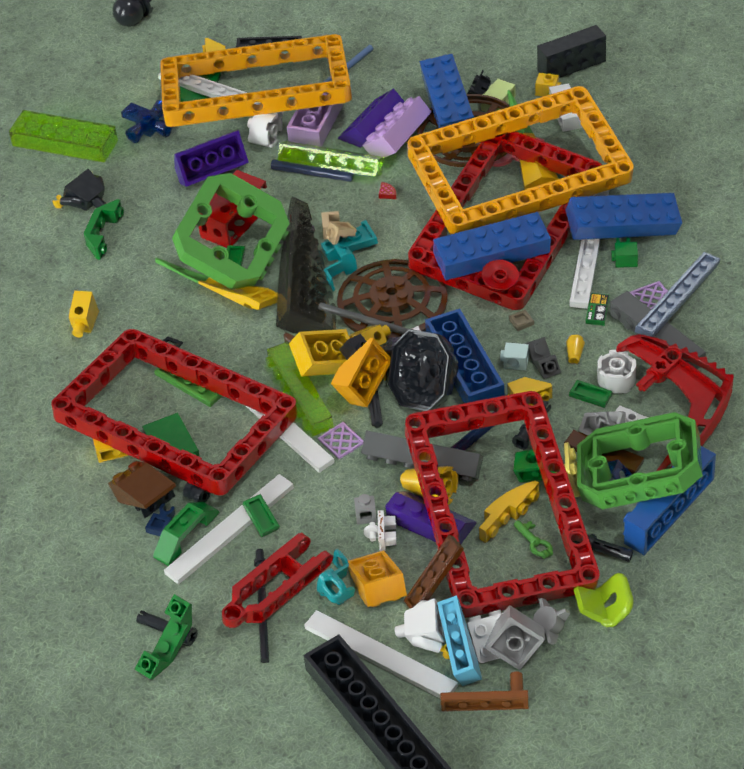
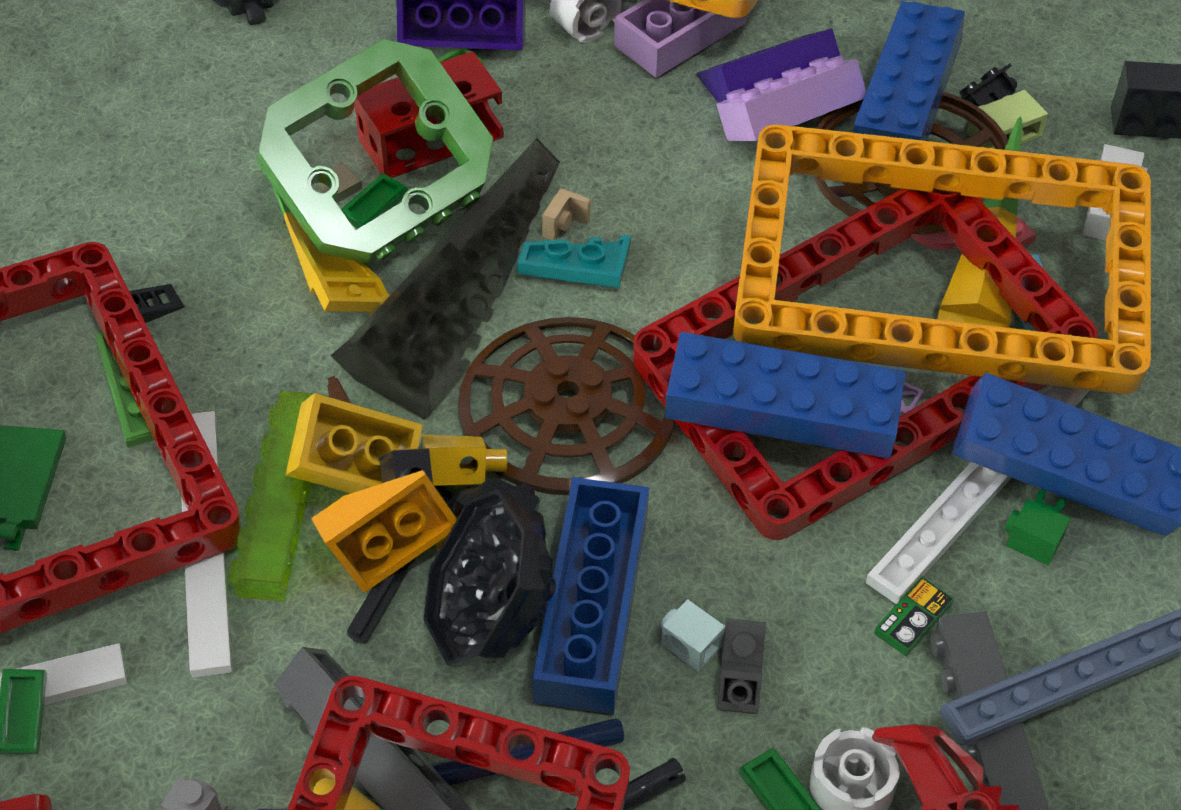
camera: 25 degrees right, 5 degrees up
(83, 312) = (67, 180): yellow torso -> none
(109, 213) = (253, 33): green slope -> none
(311, 170) = (614, 109): dark blue axle -> none
(330, 158) = (652, 103): clear neon green brick -> none
(332, 432) = (274, 607): lavender window -> none
(339, 229) = (566, 232): tan bracket -> none
(345, 263) = (535, 298): teal piece -> none
(361, 318) = (494, 430): dark grey piece -> none
(387, 191) = (704, 202): red tile -> none
(500, 269) = (765, 445): red dish -> none
(521, 320) = (759, 563): dark tan tile -> none
(527, 384) = (662, 725): yellow slope -> none
(543, 83) = (1105, 130): yellow brick -> none
(574, 348) = (813, 678): yellow cone -> none
(647, 288) = (1036, 620): lavender window -> none

